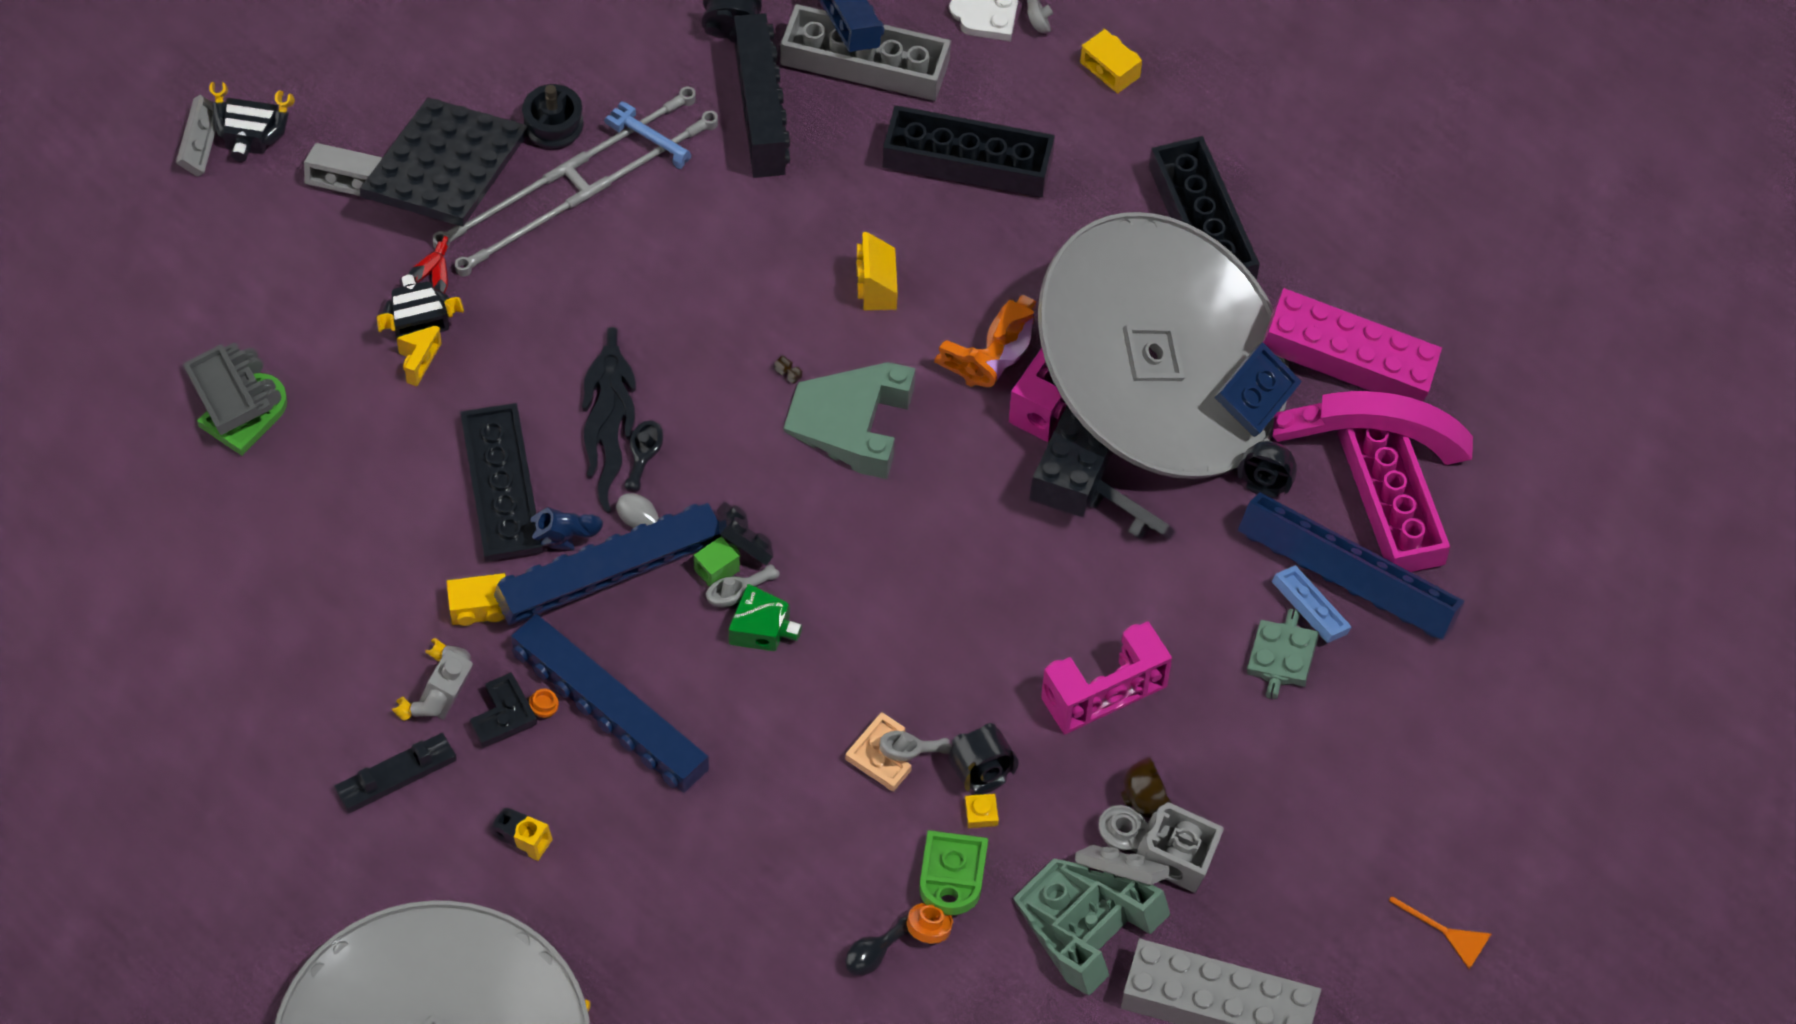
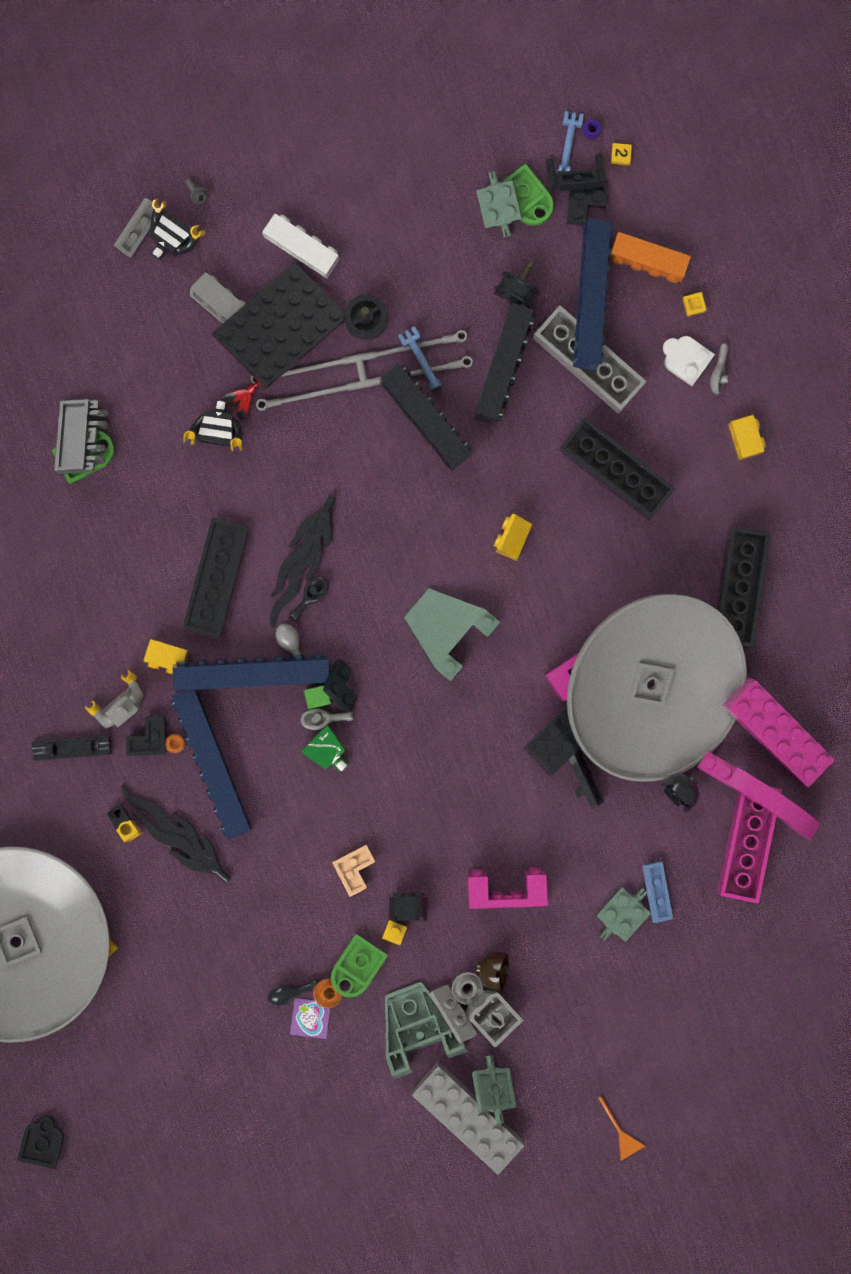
camera: 30 degrees right, 30 degrees up
(262, 74) = (197, 195): none -> dark grey plate
(419, 351) = (210, 458): yellow slope -> none
(427, 75) = (300, 245): none -> white brick
(560, 527) = (232, 635): dark blue animal -> none
(619, 819) = (184, 838): none -> black piece
(690, 185) = (425, 417): none -> black brick
(784, 366) = (425, 573): dark brown piece -> none
(905, 747) = (366, 877): light grey piece -> none
(922, 978) = (309, 1019): none -> sticker
(1005, 344) = (566, 628): orange hips -> none
(1235, 938) = (494, 1089): none -> sand green plate
(1258, 389) = (703, 736): dark blue plate -> none
(1350, 566) = (693, 881): dark blue brick -> none

